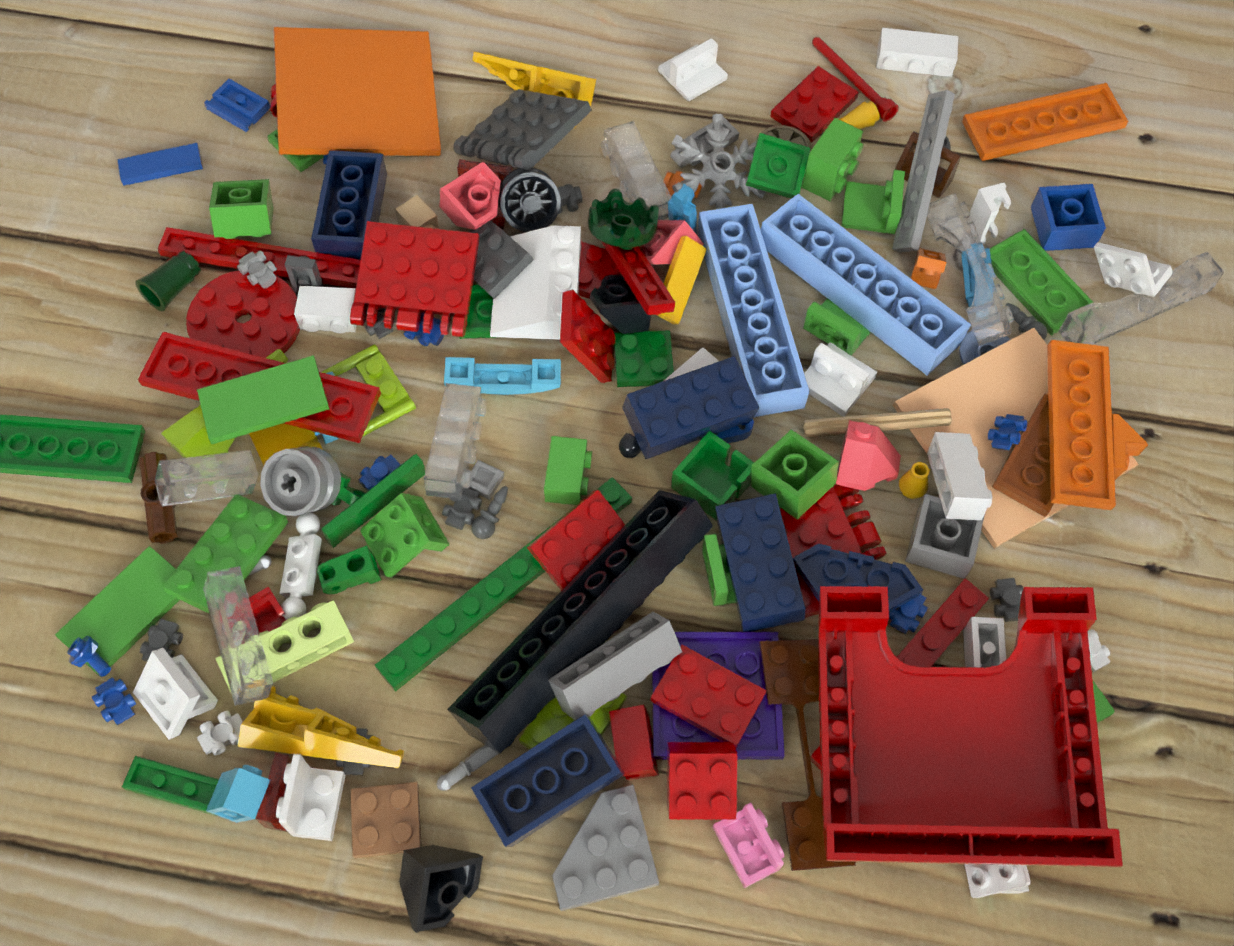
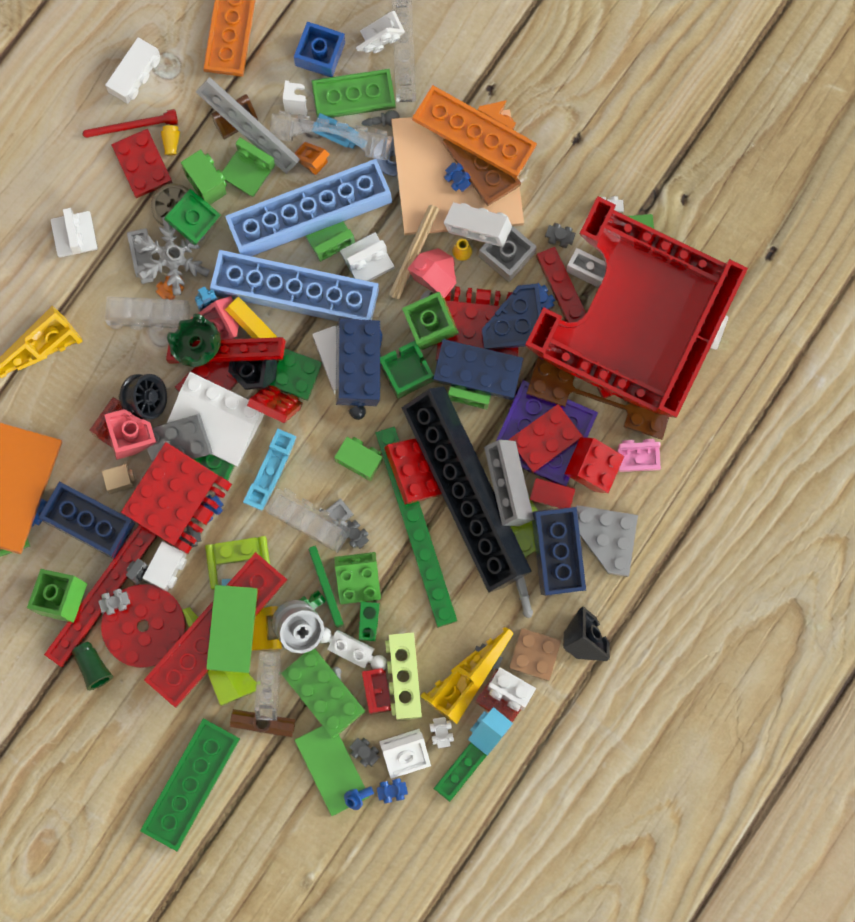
camera: 65 degrees left, 15 degrees up
(237, 635) = (394, 697): clear brick -> none
(380, 469) = (305, 572): blue piece -> none
(484, 525) = (371, 525): dark grey bar -> none
(523, 129) = (77, 374): dark grey hinge -> none
(570, 197) = (143, 366): dark grey piece -> none

